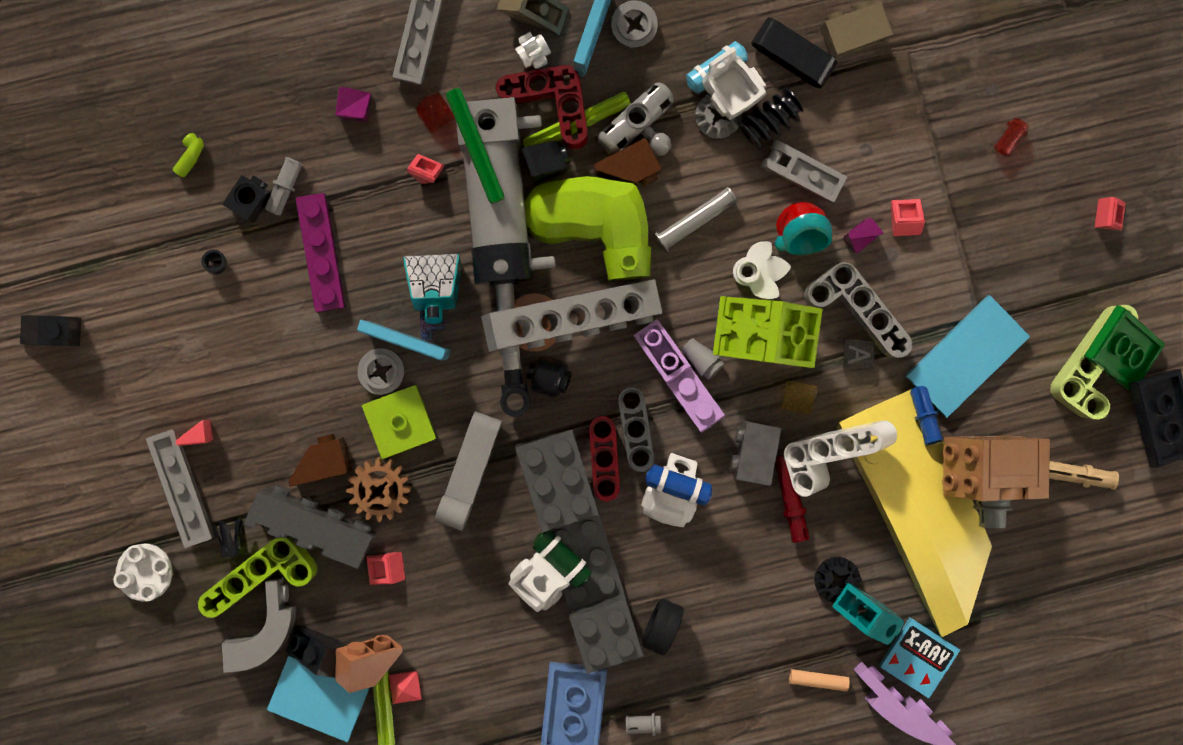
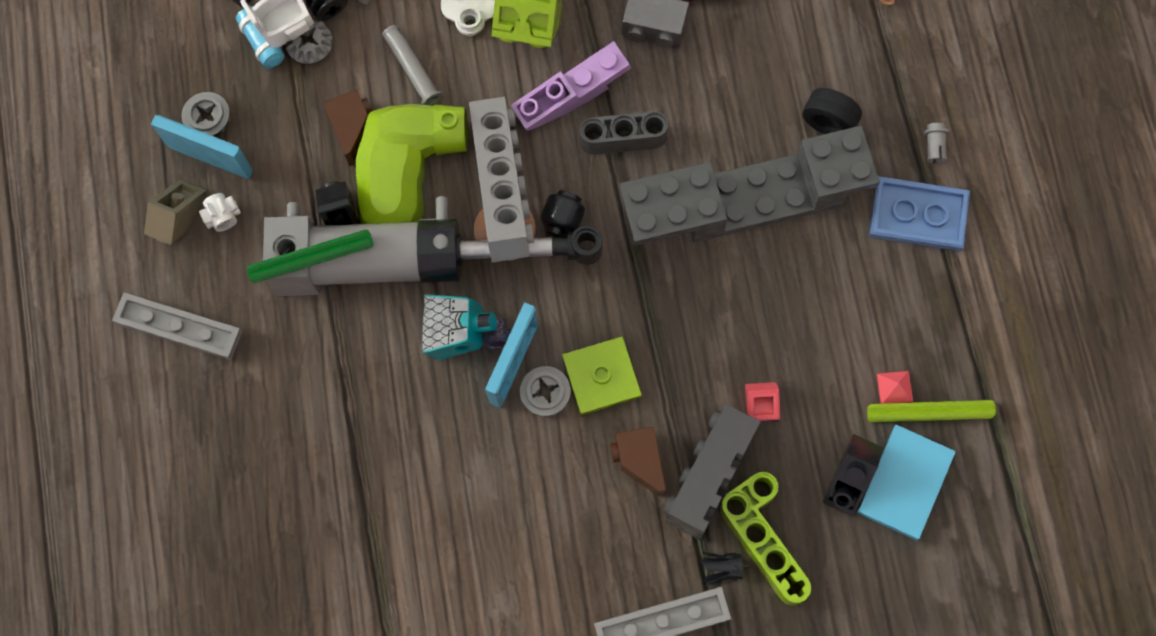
camera: 80 degrees left, 15 degrees down
(190, 156) = (288, 585): lime arm -> none
(198, 434) = (603, 597): coral slope -> none
(214, 256) = (404, 564): black hinge -> none
(236, 202) = (351, 531): black brick -> none
(253, 650) = (840, 530): light grey arch -> none
(283, 186) = (332, 483): light grey axle -> none
(320, 252) = (410, 449): magenta plate -> none
(353, 104) = (253, 403): magenta slope -> none
(365, 662) = (865, 419): nougat slope -> none
(371, 481) = (683, 407): medium nougat gear -> none
(424, 169) = (332, 331): coral slope -> none
(434, 112) = (272, 320): clear red slope -> none
(468, 471) = (660, 303): light grey beam -> none
(548, 572) = (772, 223): white piece -> none
(562, 92) = (268, 186): dark red beam -> none
(593, 115) = (298, 172): lime axle -> none
(607, 472) = (639, 156): dark red beam -> none
(650, 109) = (293, 104): light grey piece -> none
(674, 495) = (692, 93): white piece -> none
(702, 359) = (557, 60): light grey cone -> none

